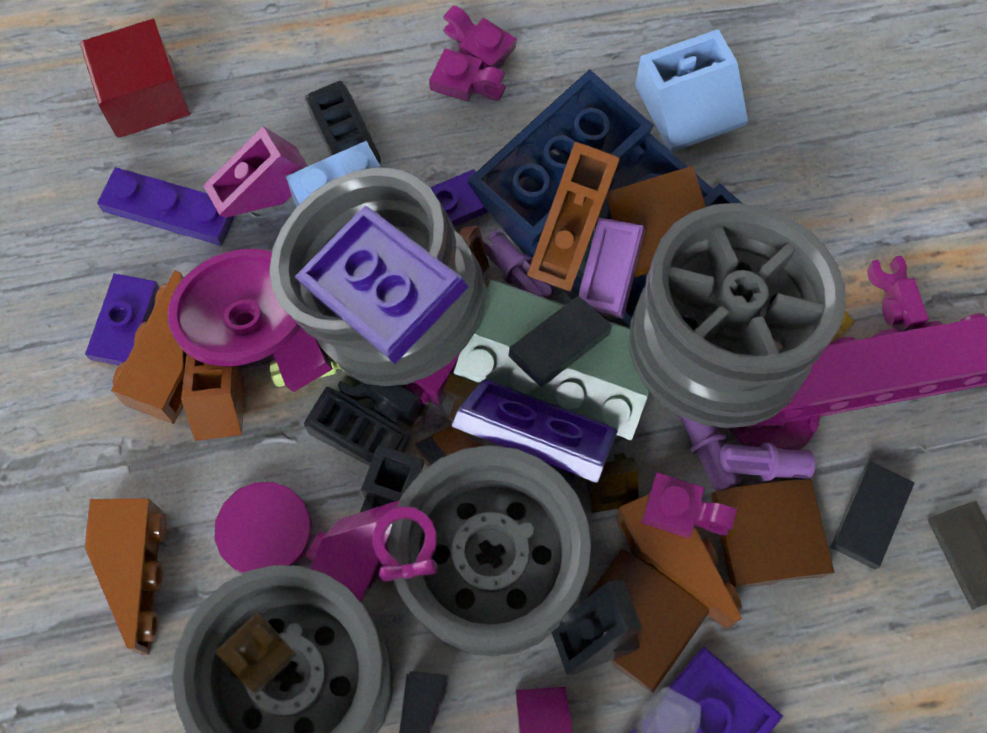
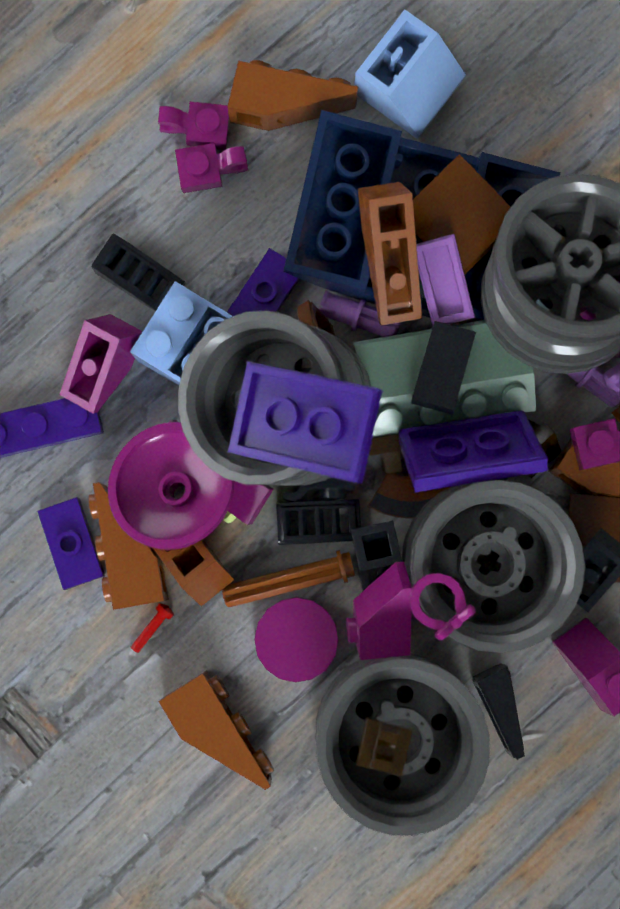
camera: 35 degrees left, 15 degrees up
(159, 430) = (163, 613): none -> red piece
(294, 468) = (289, 580): none -> dark orange axle
(562, 52) = (280, 98): none -> dark orange slope

